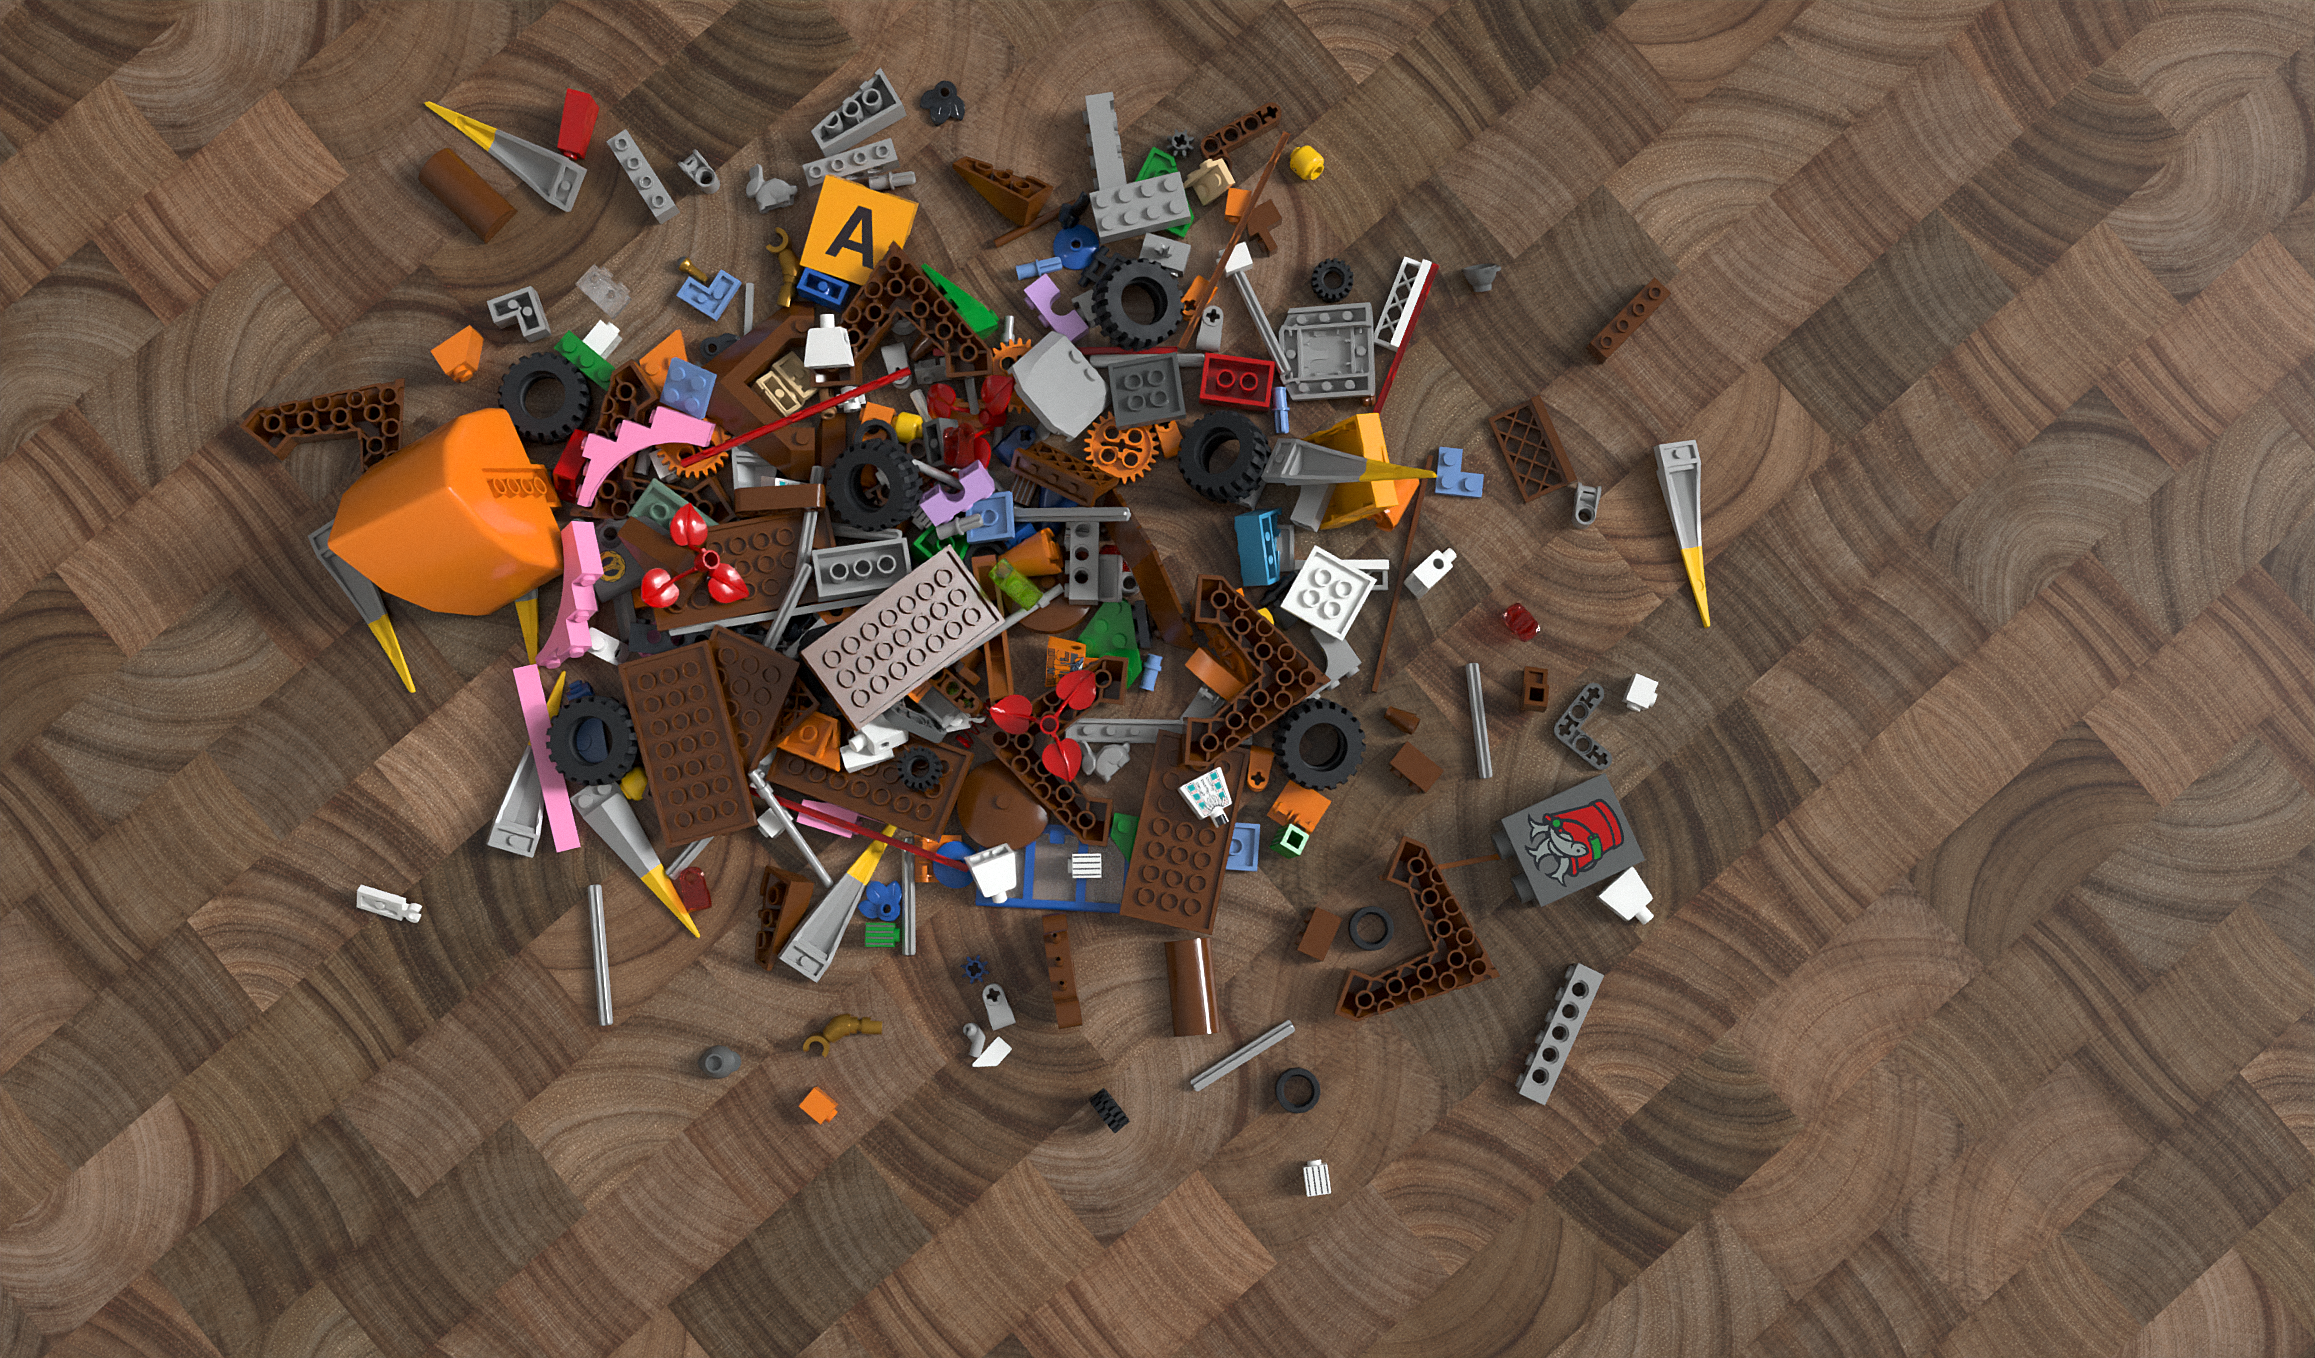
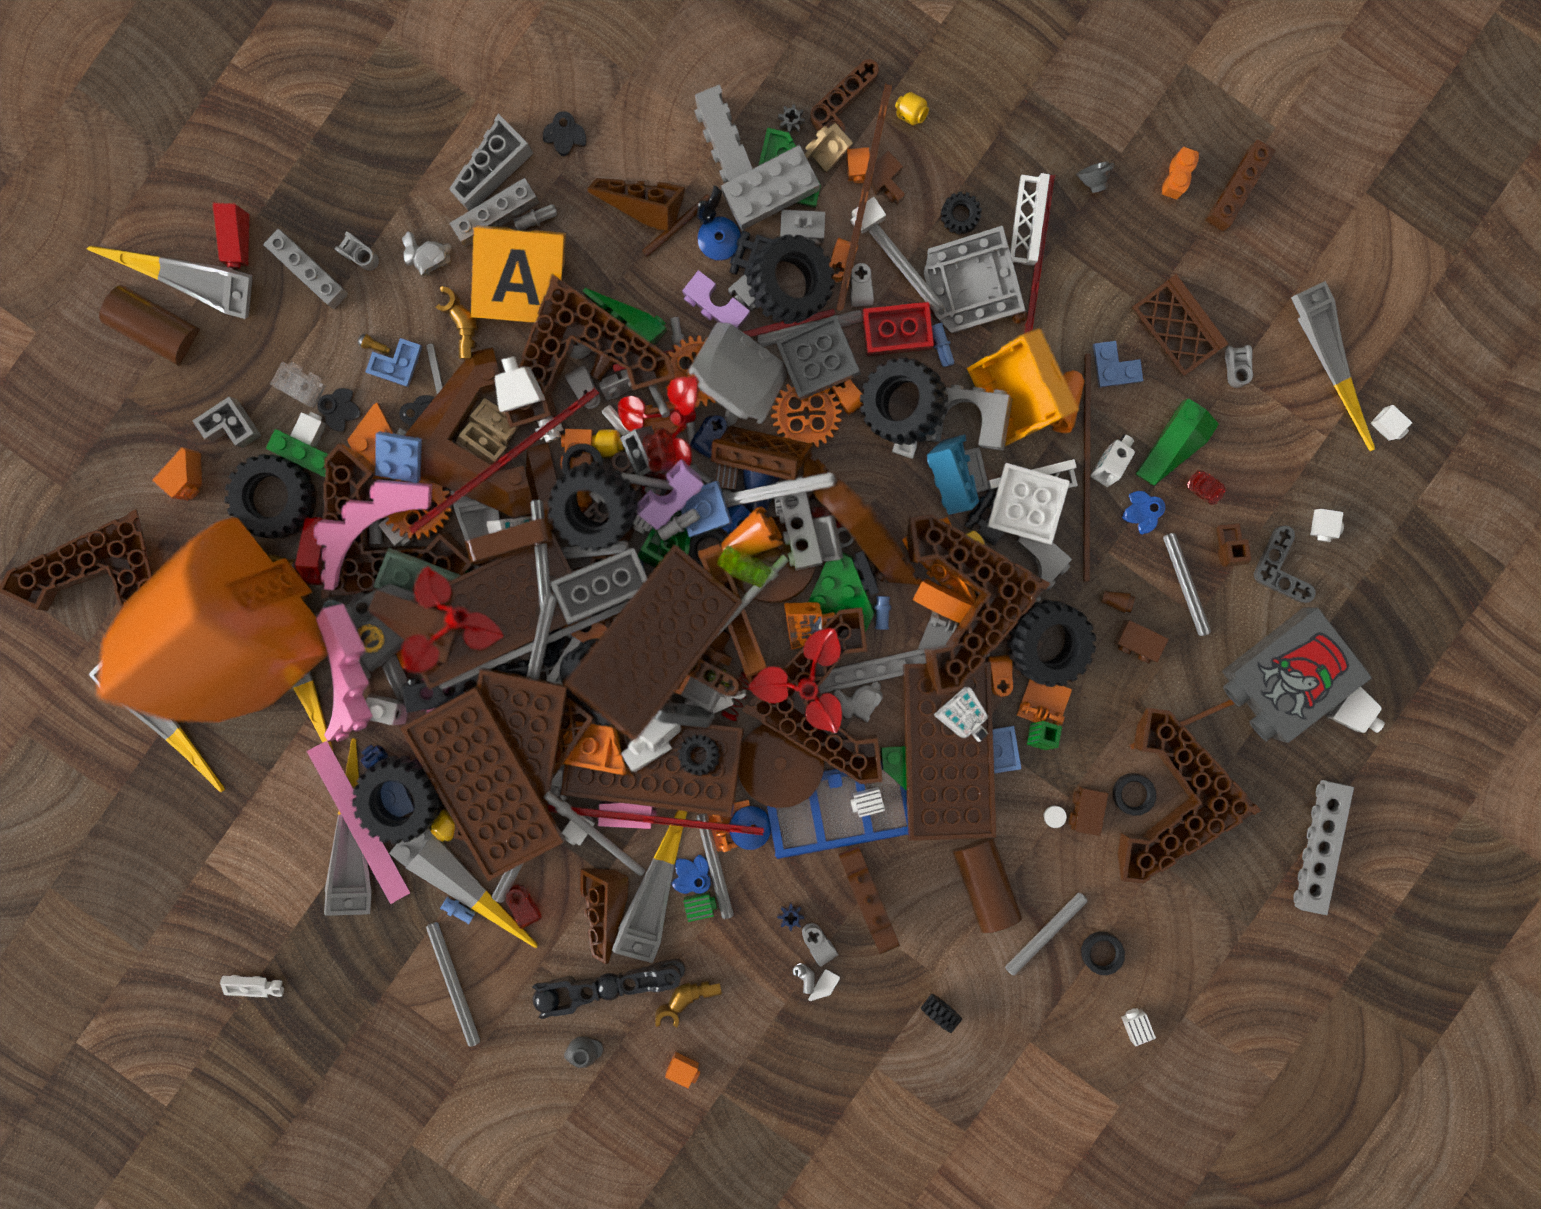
camera: 10 degrees left, 5 degrees up
(625, 877) = (457, 910): none -> medium blue pin
(642, 327) = (341, 410): none -> black plate
(761, 995) = (607, 986): none -> black piece
(823, 290) = (499, 334): blue brick -> none
(825, 395) = (525, 433): medium nougat pin -> none
(993, 871) = (787, 828): white torso -> none
(1039, 268) = (690, 266): medium blue axle -> none
(1216, 509) = (905, 450): none -> white tile
(1281, 932) = (1055, 816): none -> white tile
(1307, 463) = (983, 391): light grey plate -> none
(1447, 633) = (1141, 513): none -> blue plate
(1510, 565) = (1183, 435): none -> green wedge
(1567, 295) = (1180, 173): none -> orange brick
(1732, 603) = (1391, 423): none -> white brick

